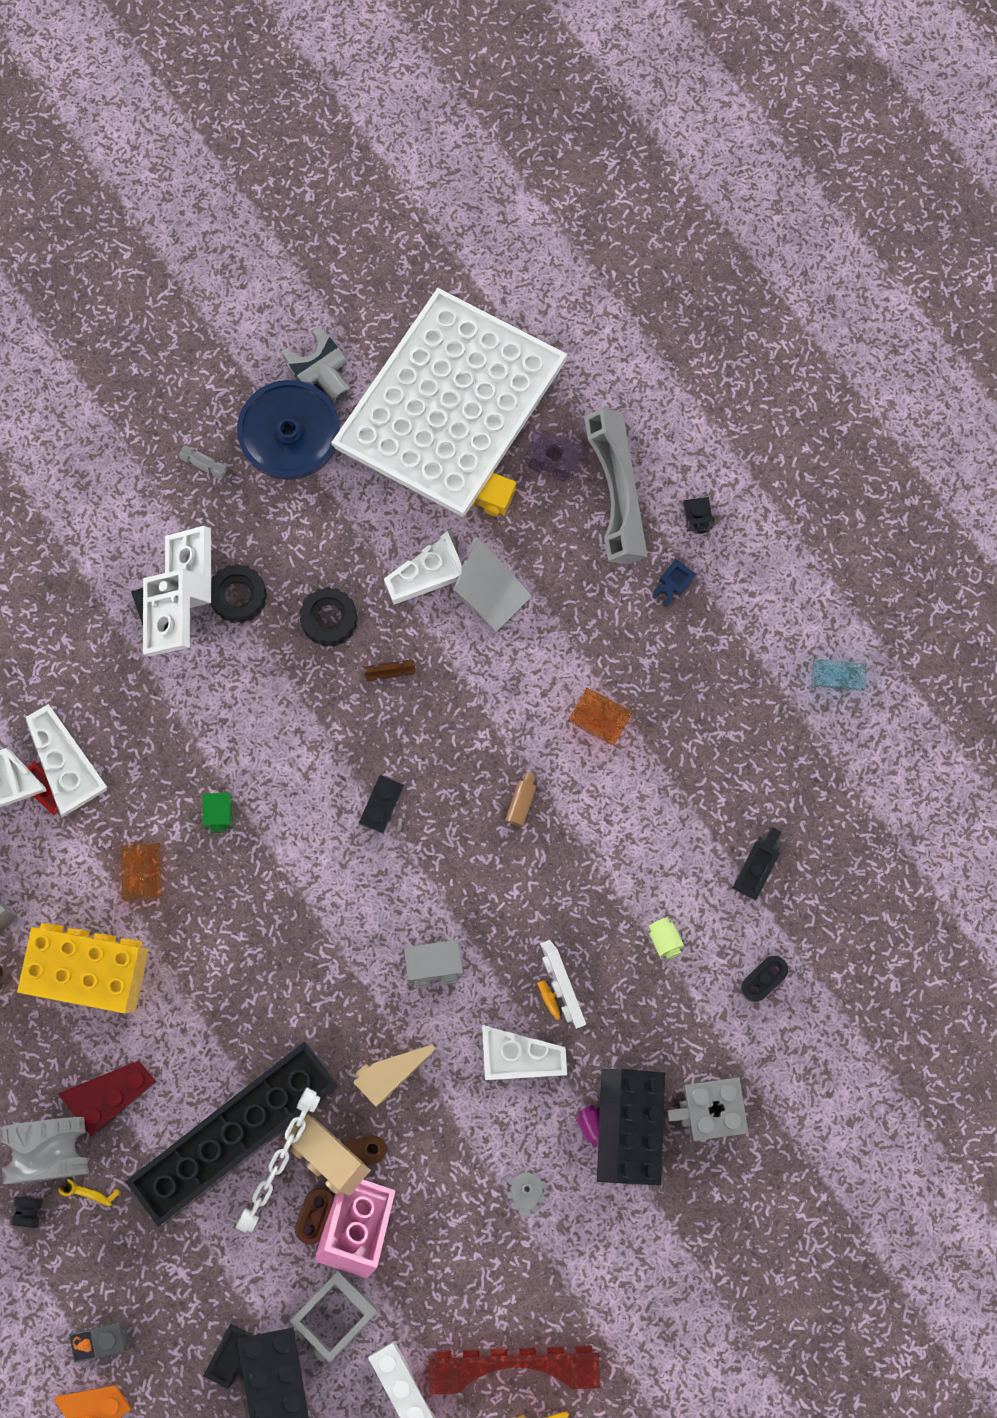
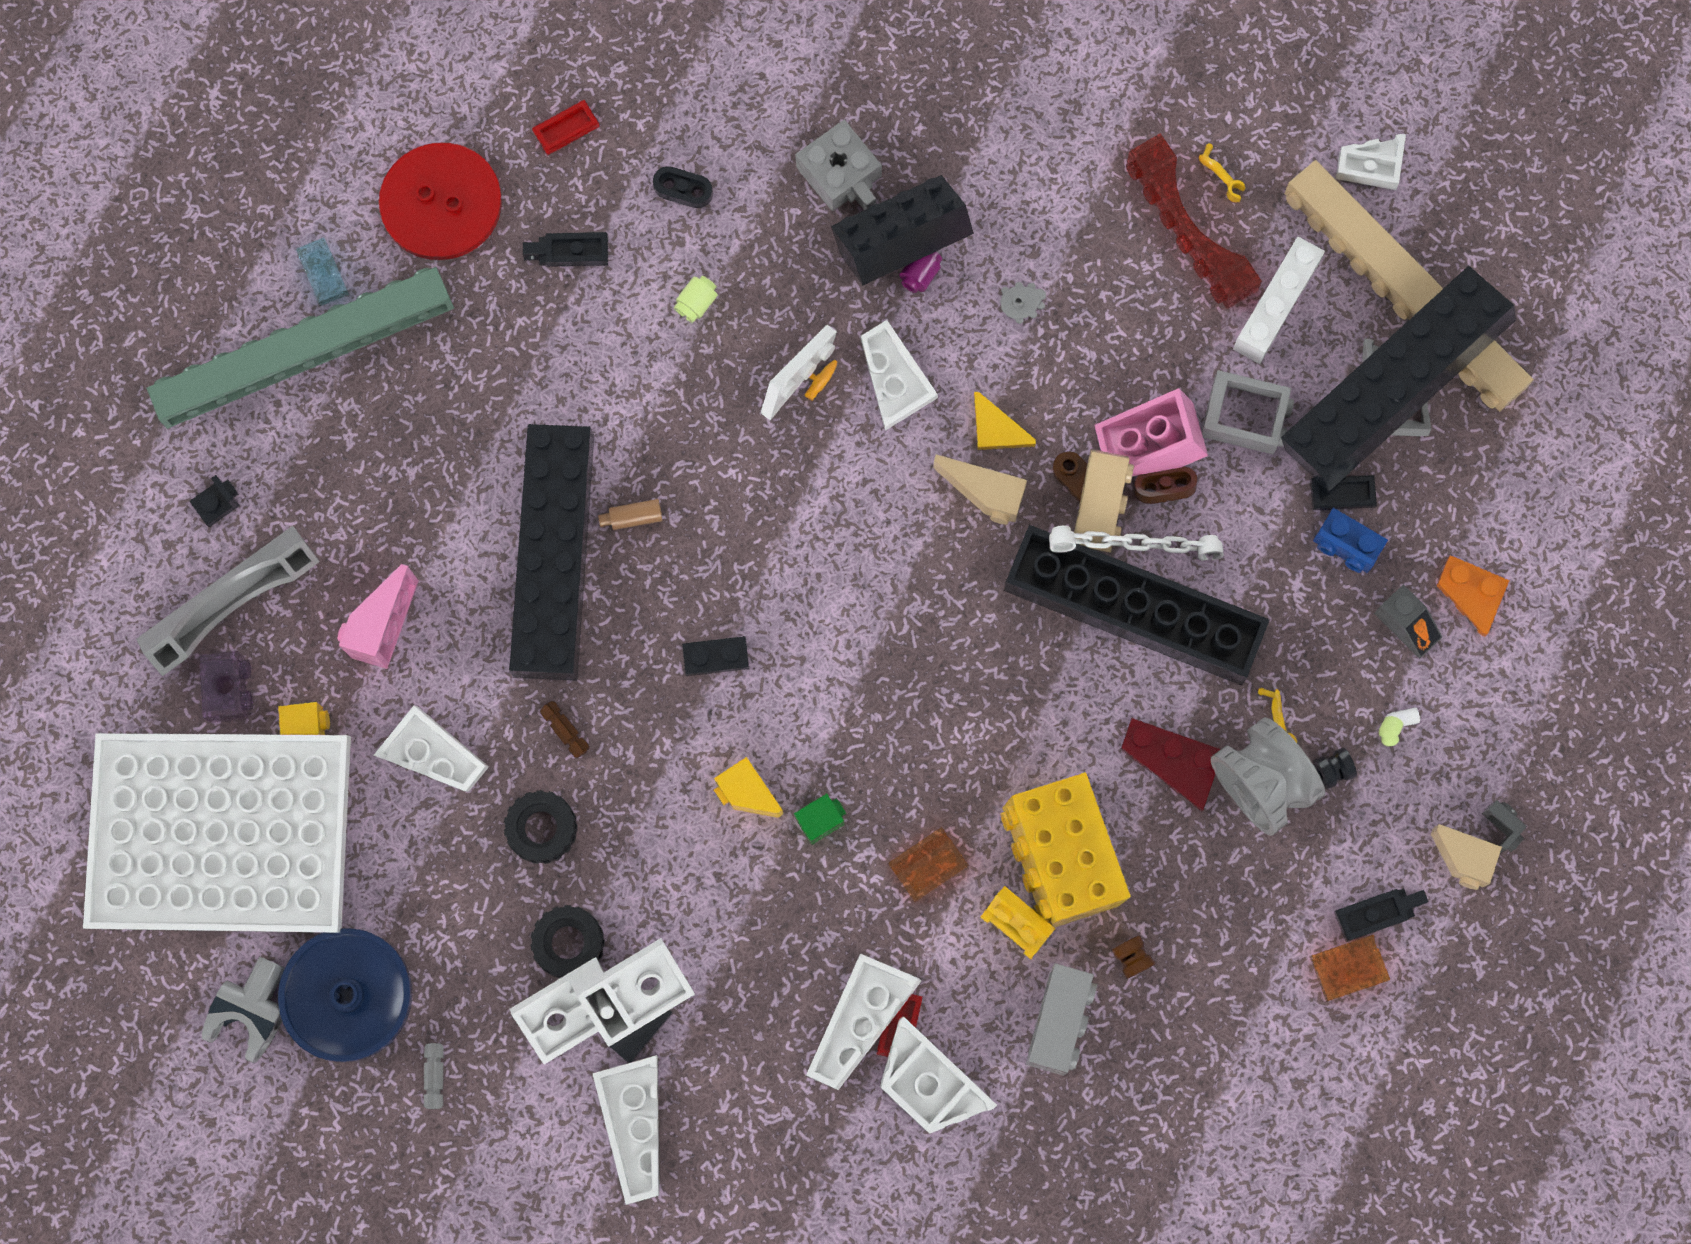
camera: 115 degrees left, 0 degrees up
(32, 1280) = (1394, 723): none -> yellowish green arm
(58, 907) = (1018, 921): none -> yellow plate
(94, 574) = (632, 1122): none -> white wing
(189, 1336) = (1349, 541): none -> blue bracket
(268, 770) = (746, 790): none -> yellow slope
(433, 963) = (852, 501): light grey brick -> none
(435, 1111) = (996, 429): none -> yellow tile
(489, 587) = (415, 672): light grey slope -> none
(524, 727) = (552, 552): none -> black brick
(534, 571) = (378, 620): none -> bright pink slope
(600, 716) = (497, 484): clear orange plate -> none
(675, 580) = (303, 486): dark blue plate -> none
(785, 631) = (299, 347): none -> sand green brick
(852, 790) = (440, 201): none -> red plate
(864, 916) = (565, 127): none -> red tile

